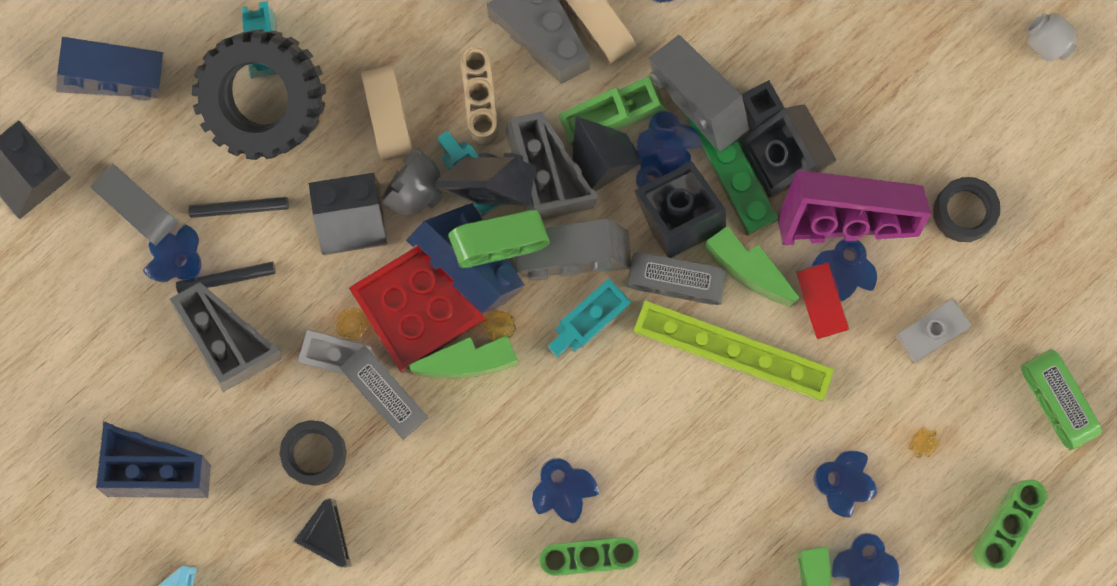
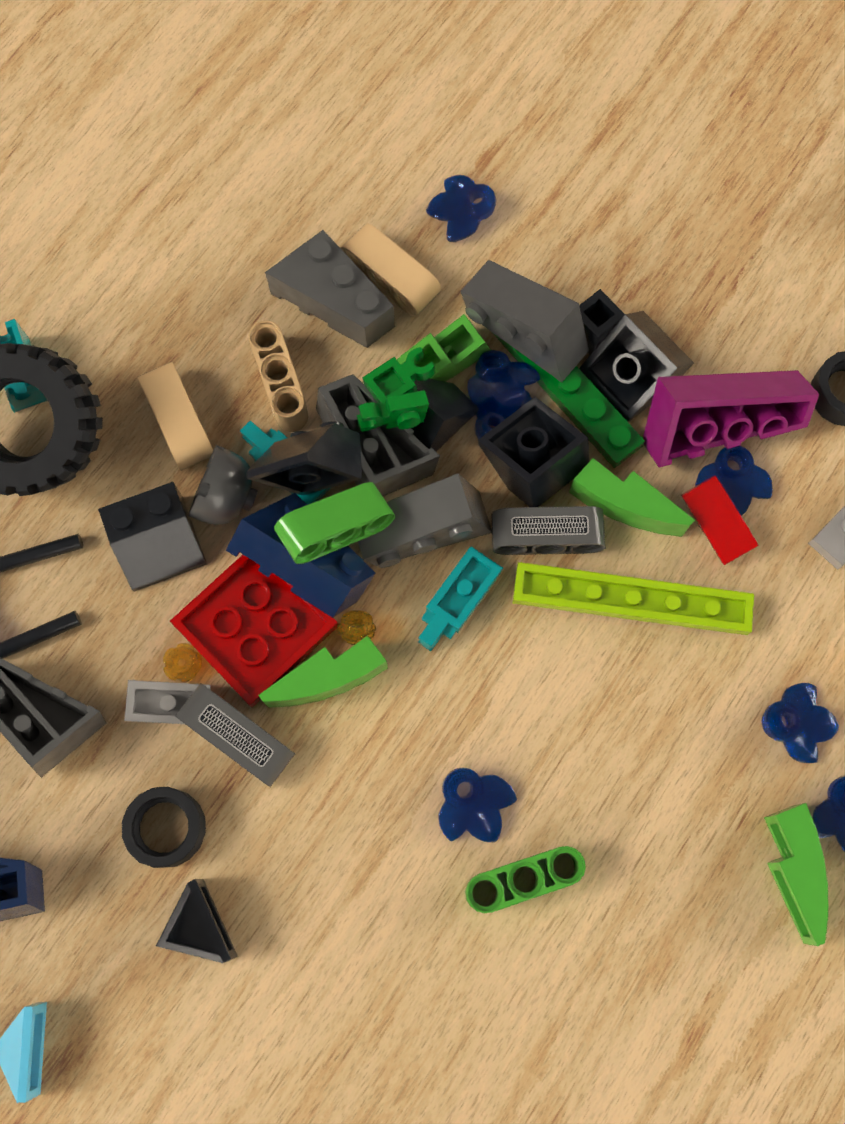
camera: 15 degrees left, 5 degrees down
(572, 154) = (398, 411): none -> green plate
(574, 127) = (398, 379): none -> green plate

